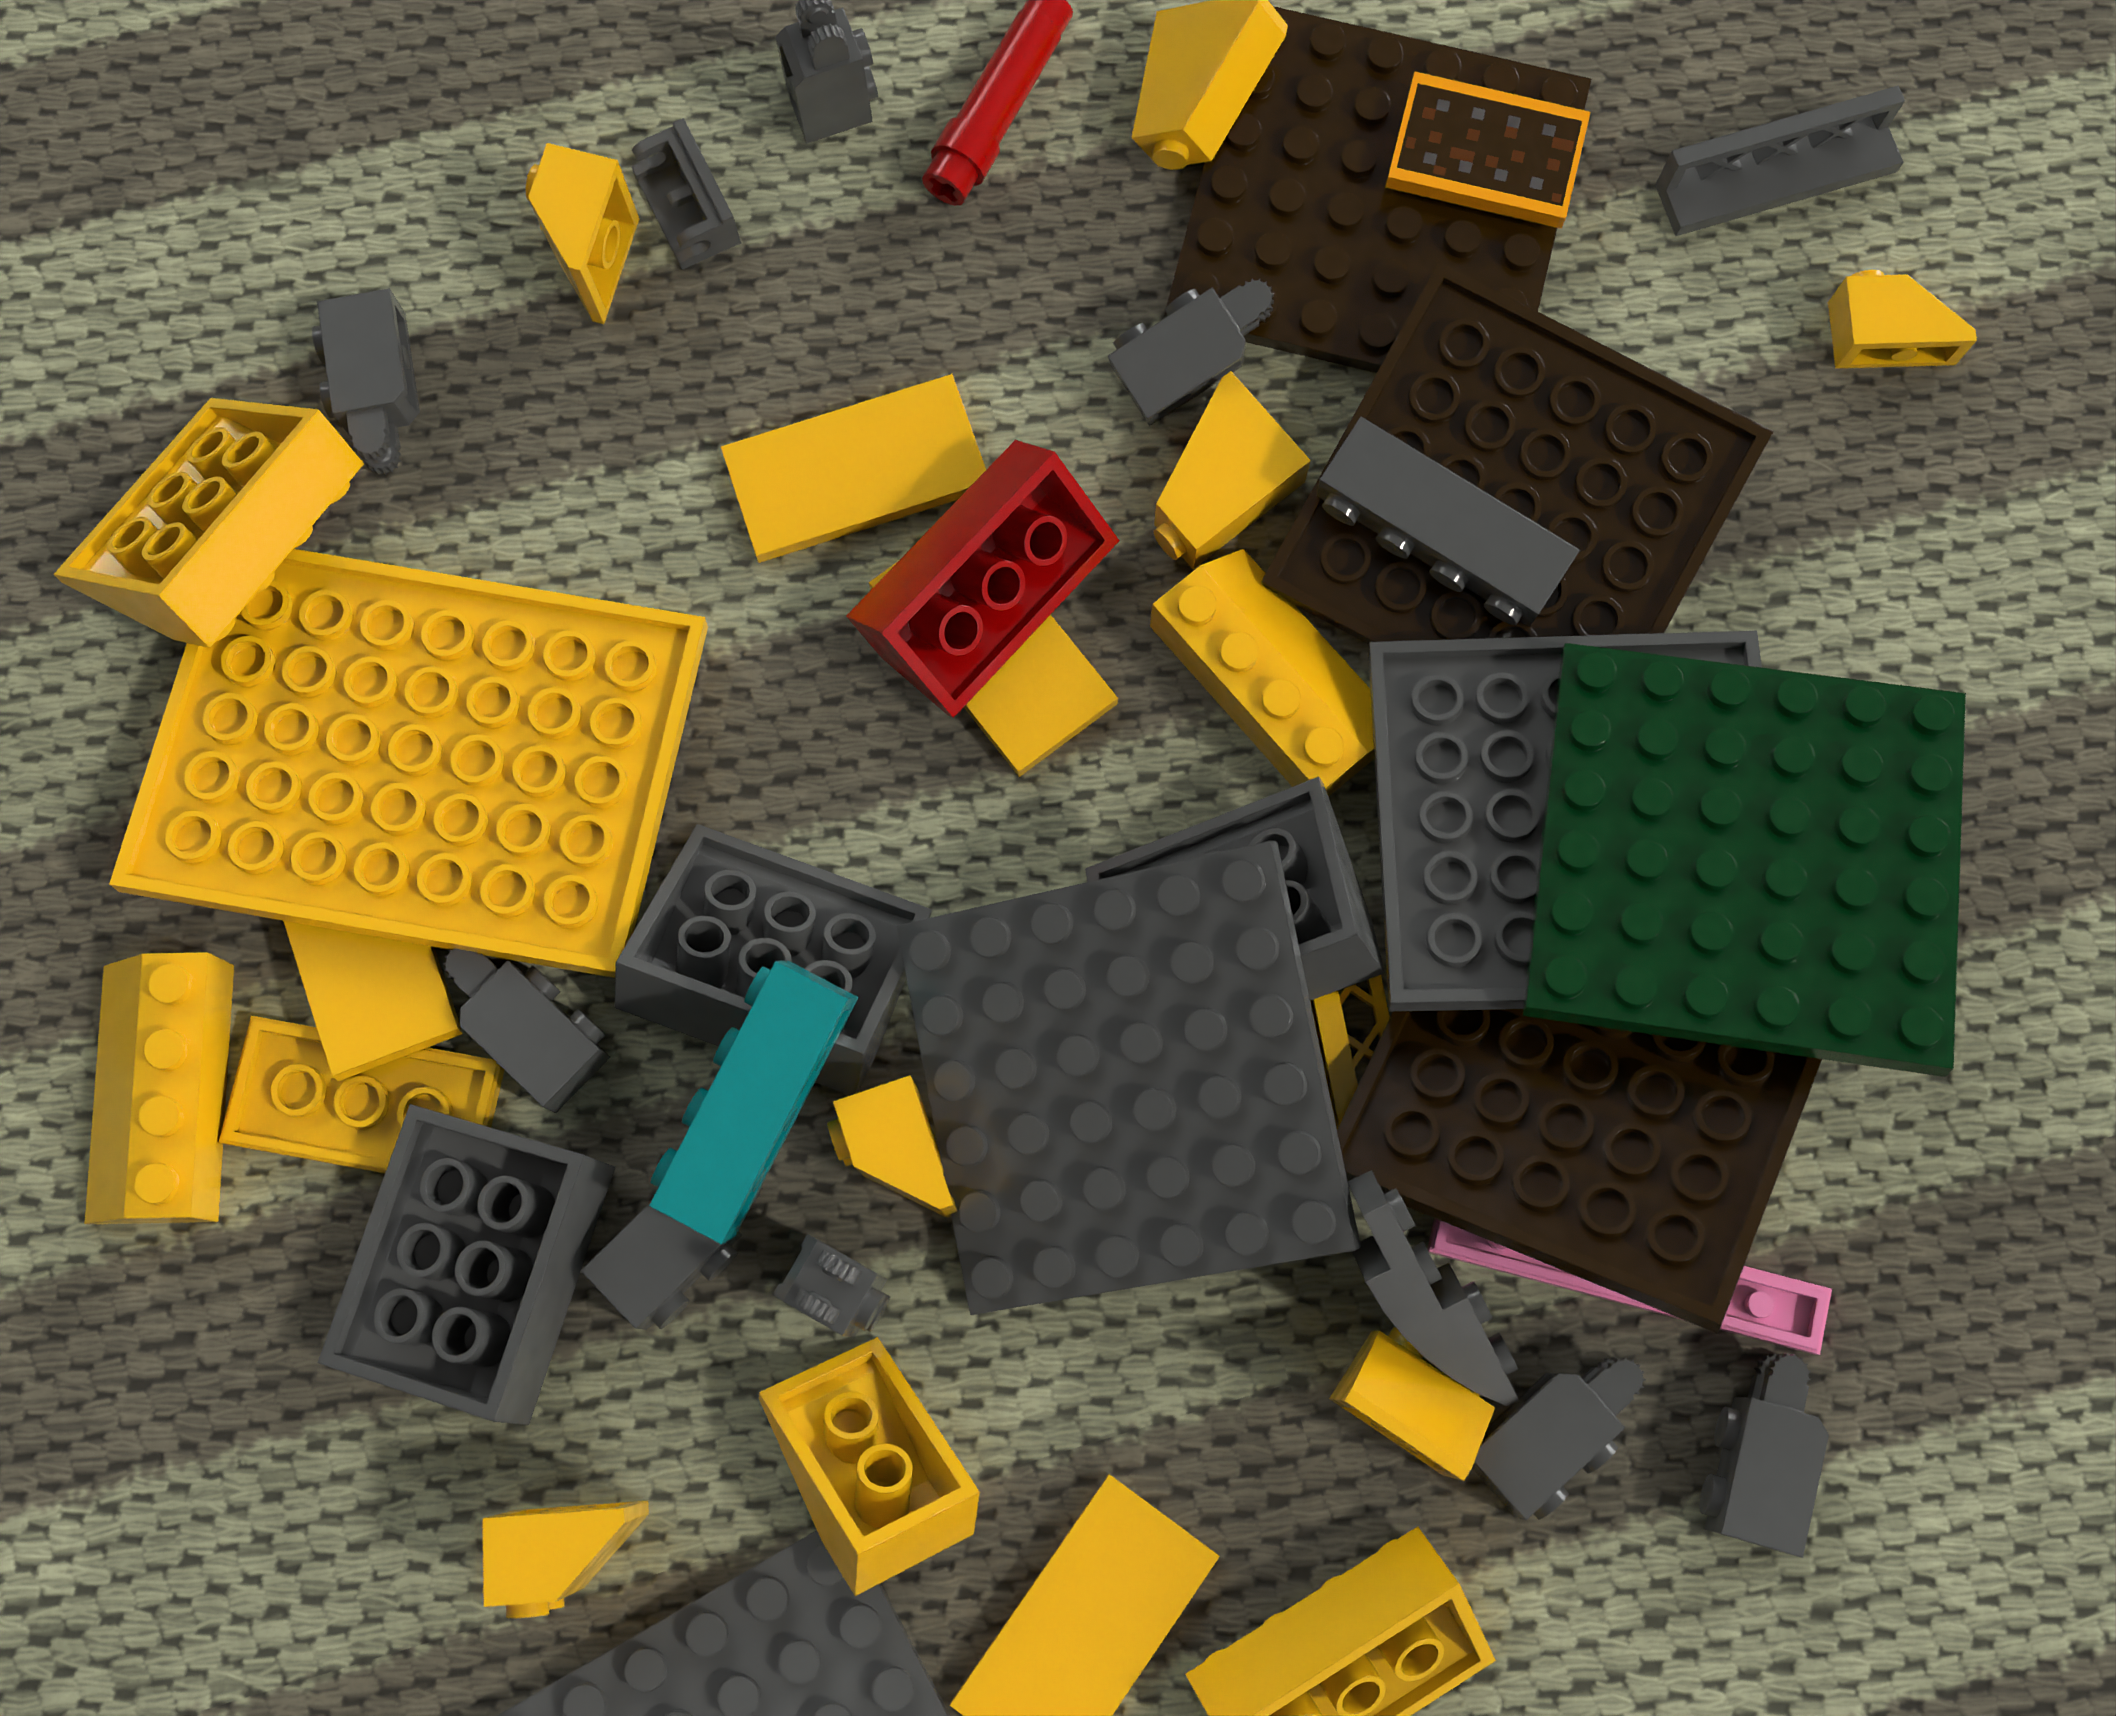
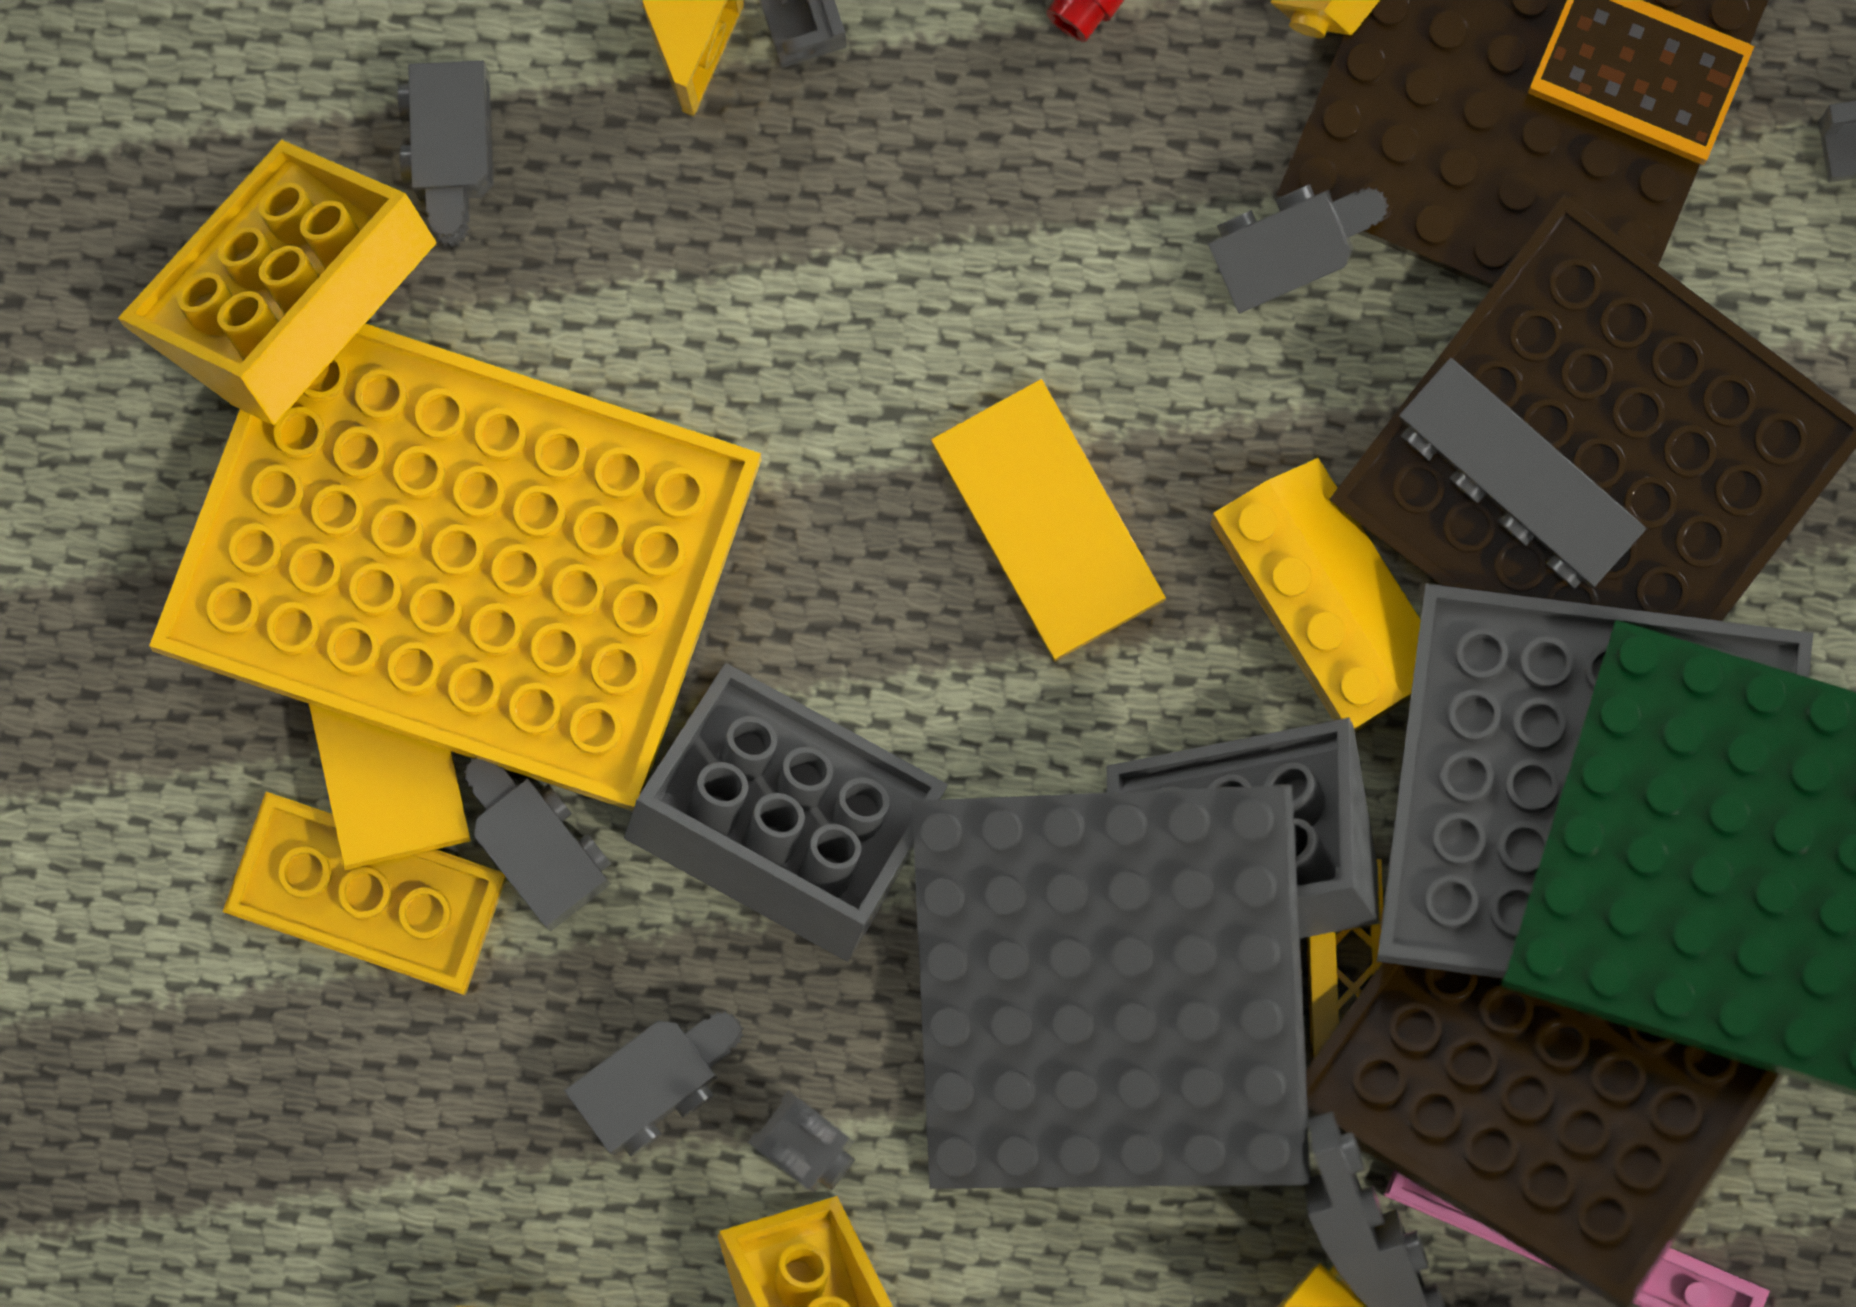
camera: 15 degrees right, 5 degrees up
(160, 1090) = (168, 851): yellow slope -> none
(467, 1266) = (454, 1067): dark grey slope -> none
(752, 1101) = (753, 955): teal brick -> none
(854, 467) = (934, 313): yellow tile -> none
(892, 1143) = (879, 1015): yellow slope -> none
(985, 576) = (1049, 455): red slope -> none
(1227, 475) = (1311, 381): yellow slope -> none

